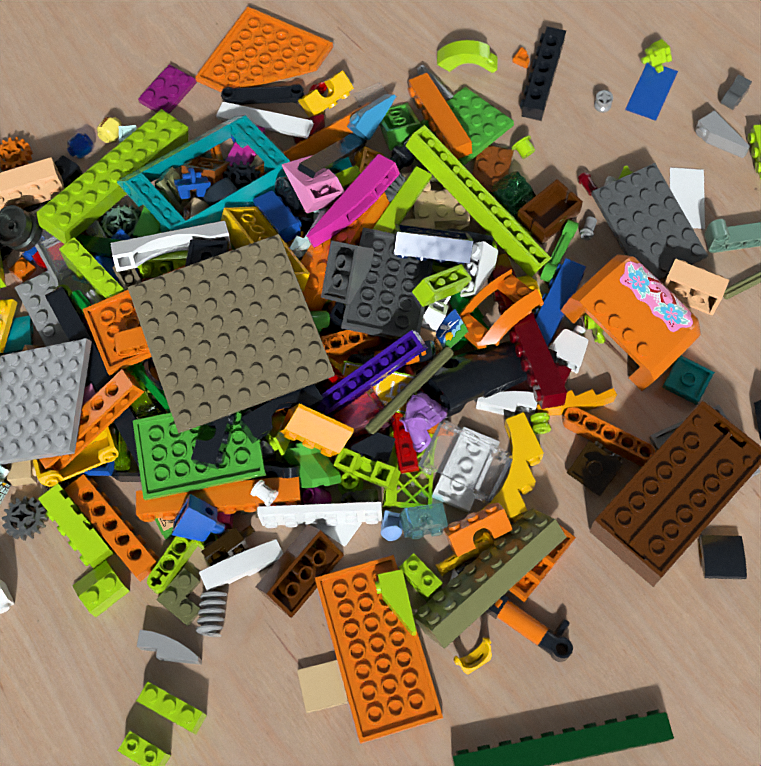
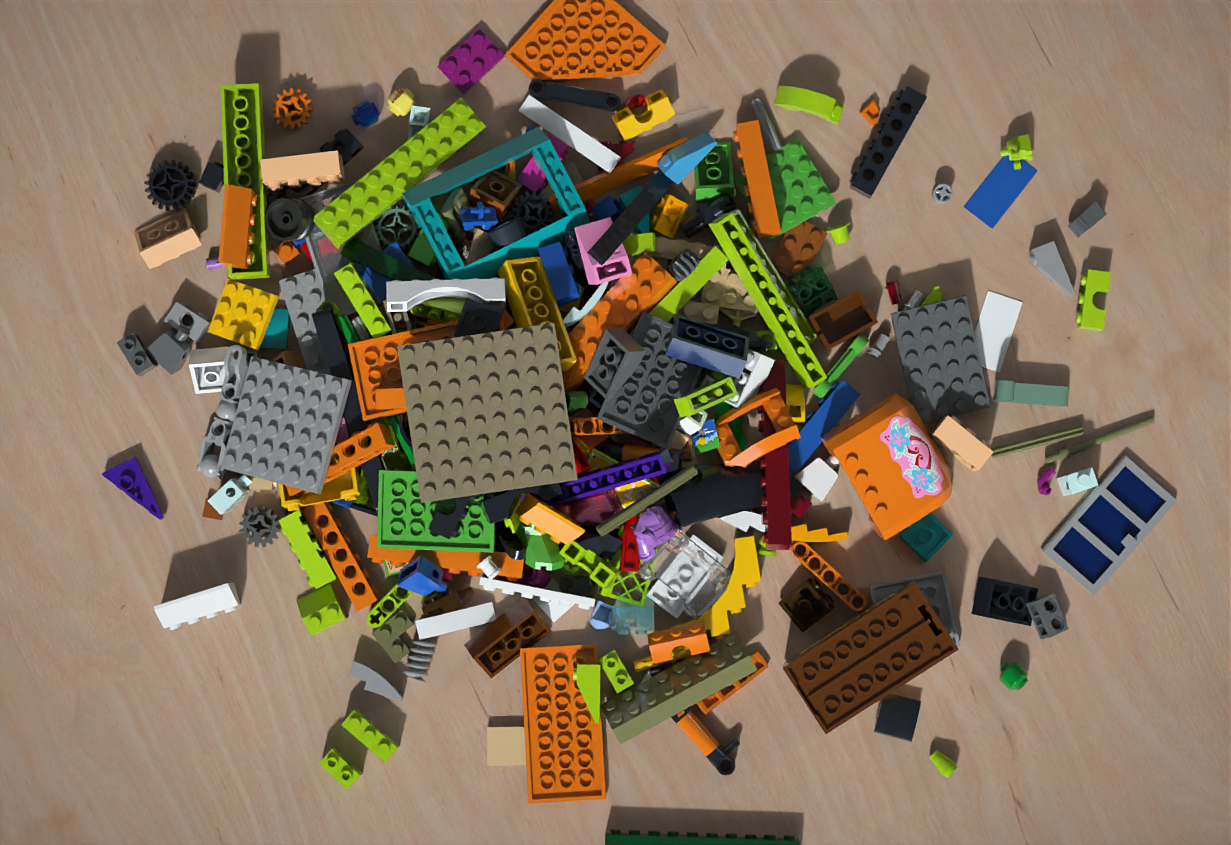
camera: 15 degrees right, 20 degrees up
(355, 200) = (642, 284): dark pink slope -> none
(484, 649) = (643, 752): yellow helmet -> none

